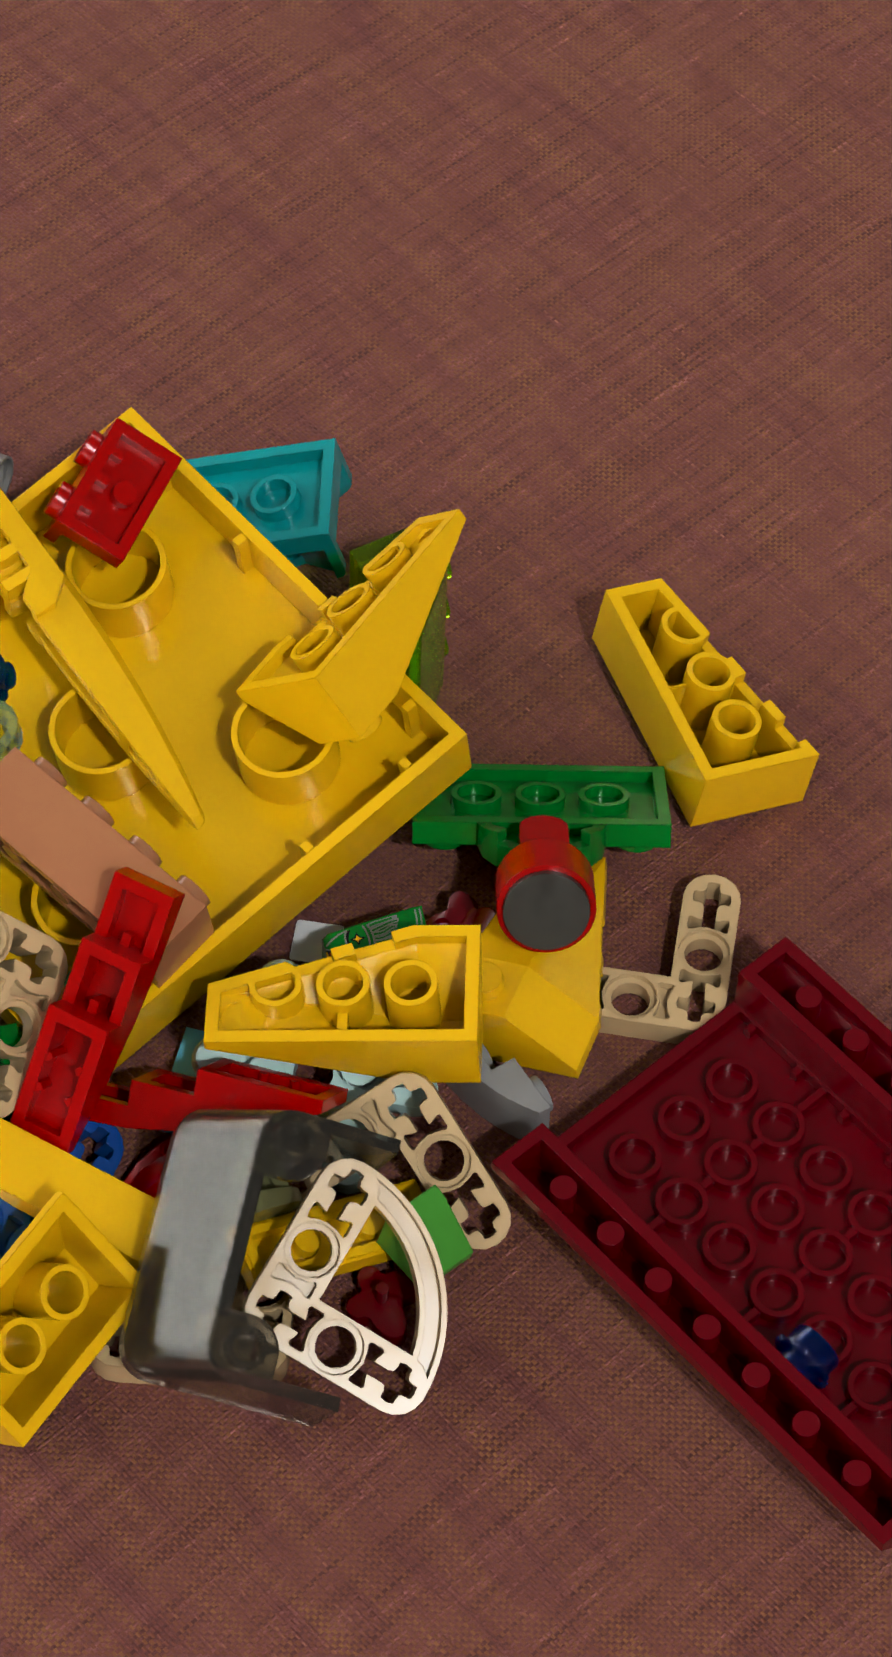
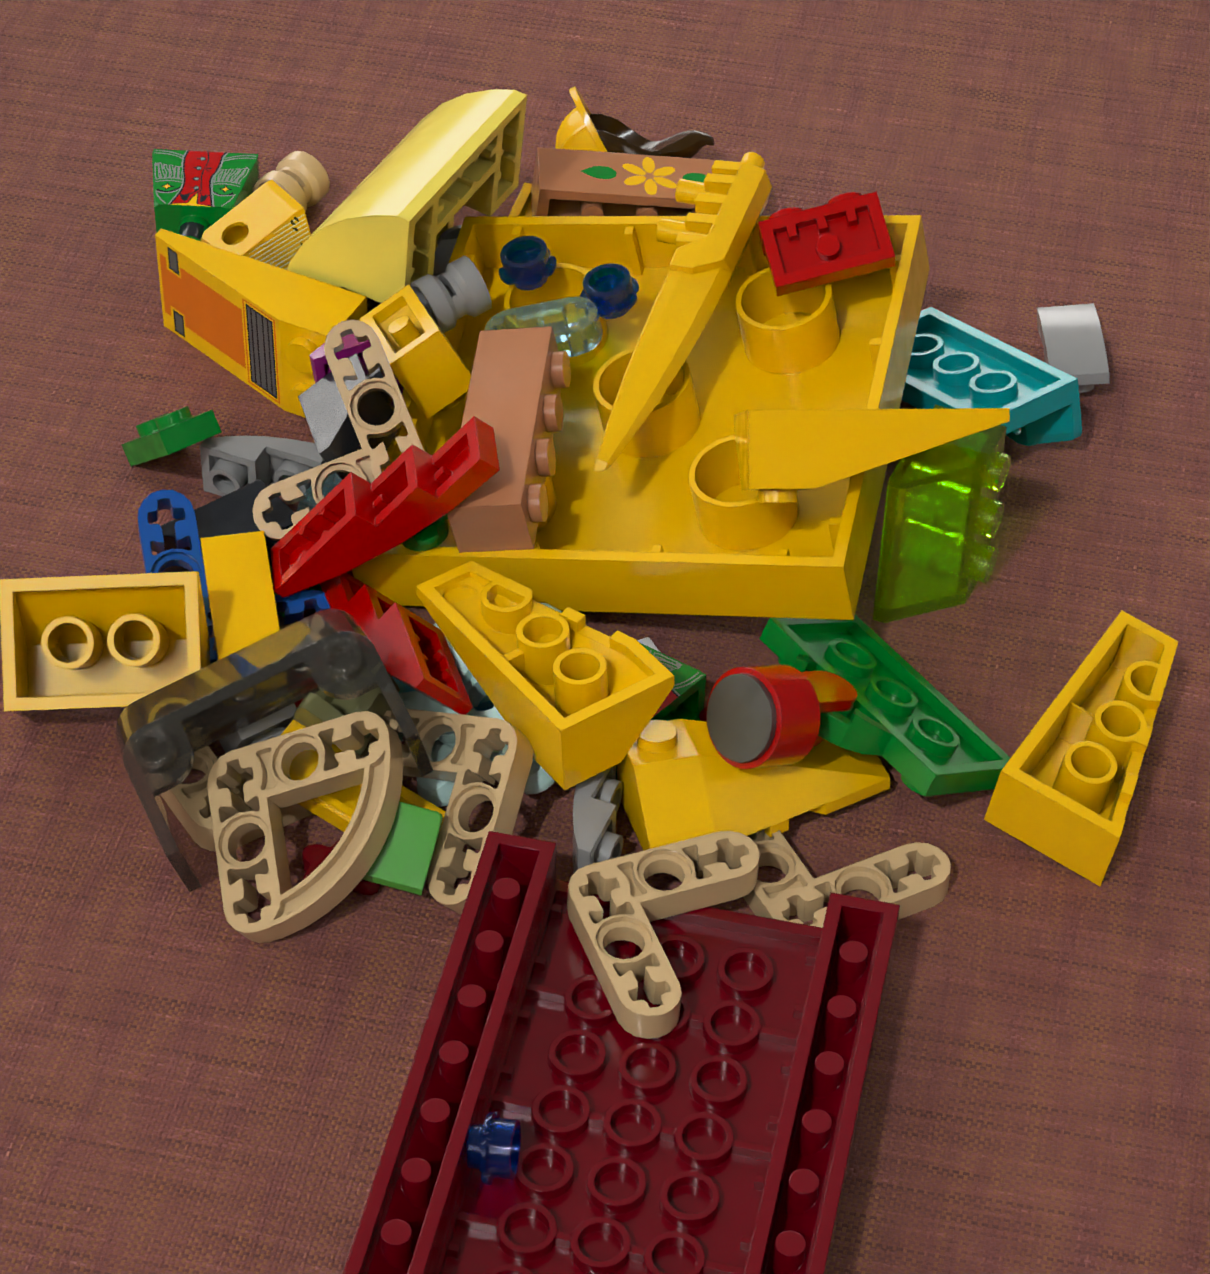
camera: 55 degrees right, 10 degrees down
(238, 408) = (1074, 343): none -> light grey slope
(622, 1112) = (637, 904): none -> tan beam

